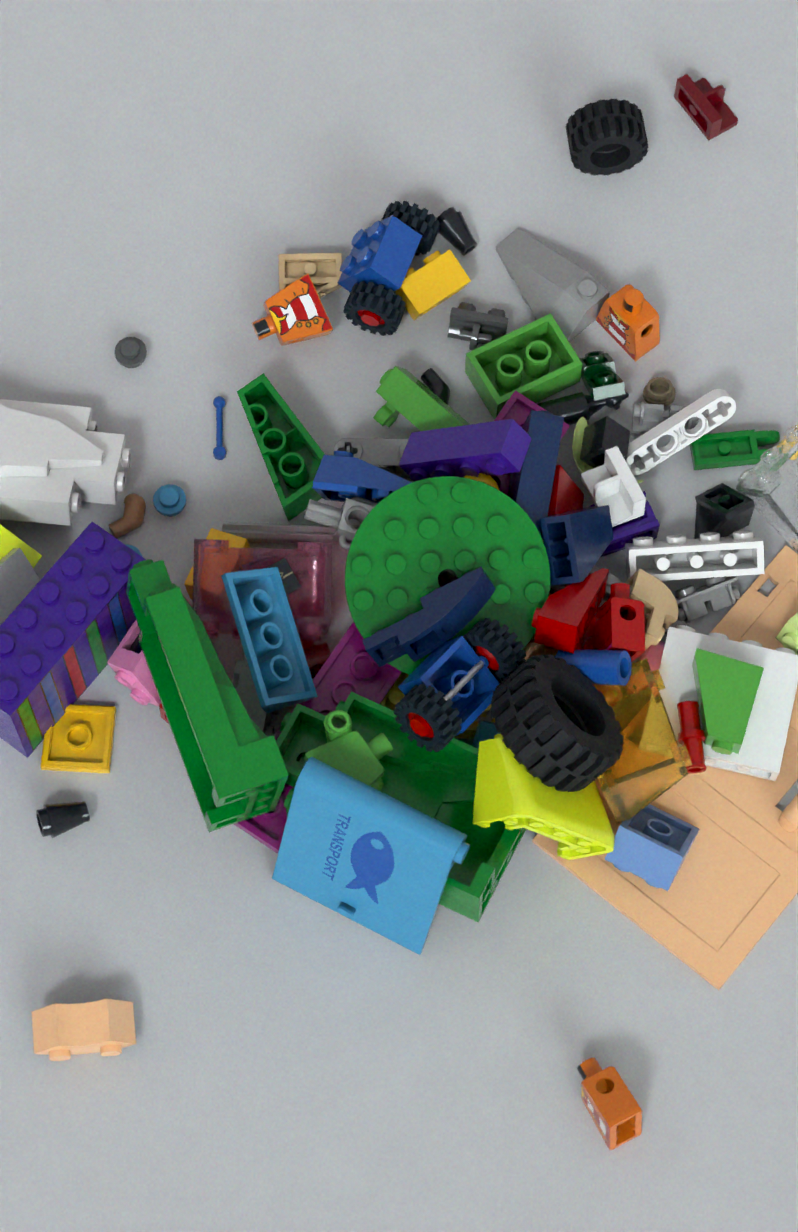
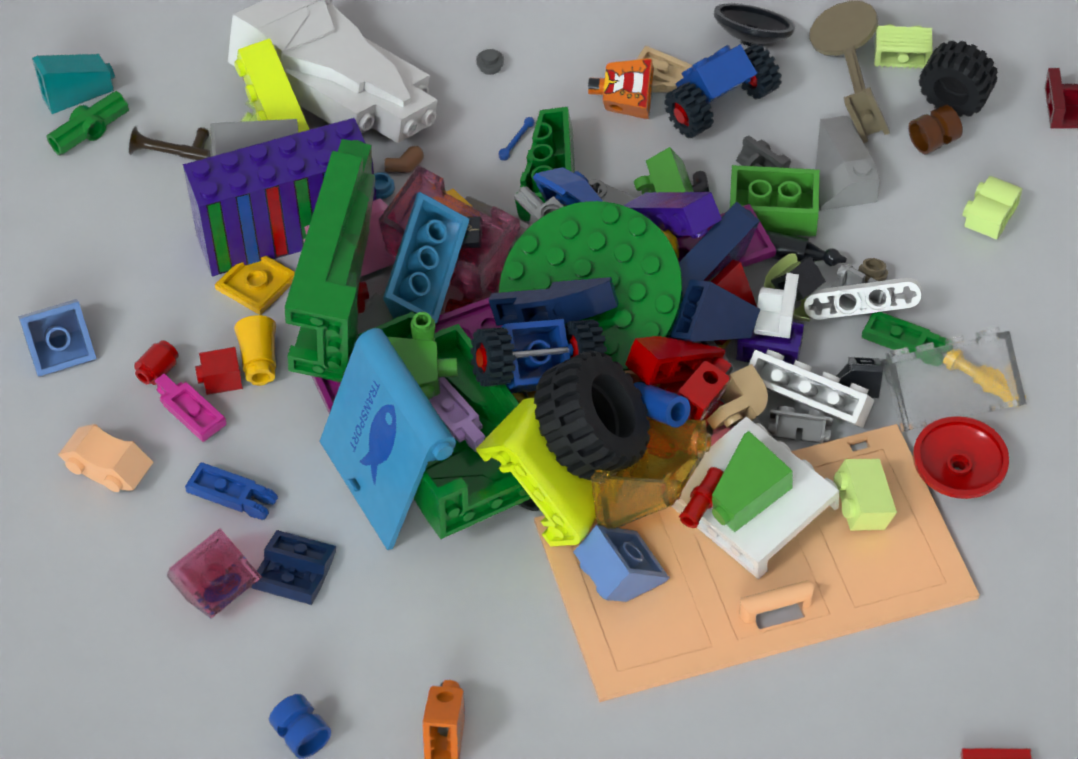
camera: 35 degrees right, 15 degrees down
(52, 891) = (155, 362): none -> red brick
(61, 817) = (201, 321): black cone -> none
(122, 863) = (219, 371): none -> red brick
(122, 920) = (190, 408): none -> dark pink hinge
(144, 818) = (257, 348): none -> yellow plant
(169, 500) = (442, 164): dark azure plate -> none
(227, 986) = (230, 490): none -> blue hinge
(286, 1088) = (213, 574): none -> clear pink slope
(348, 1028) = (294, 567): none -> dark blue slope
(366, 171) = (753, 23): none -> black dish
(415, 788) = (458, 415): none -> lavender hinge
(432, 283) = (746, 116): yellow brick -> none
(455, 133) = (841, 32): none -> dark tan piece
(455, 230) = (795, 92): black cone -> none
(481, 1191) = (302, 730): none -> blue wheel
(521, 121) = (902, 46): none -> yellowish green brick
(600, 376) = (833, 235): dark green slope -> none
(615, 203) = (935, 130): none -> reddish brown wheel
(627, 317) = (882, 198): orange torso -> none
(720, 261) = (992, 206): none -> yellowish green brick

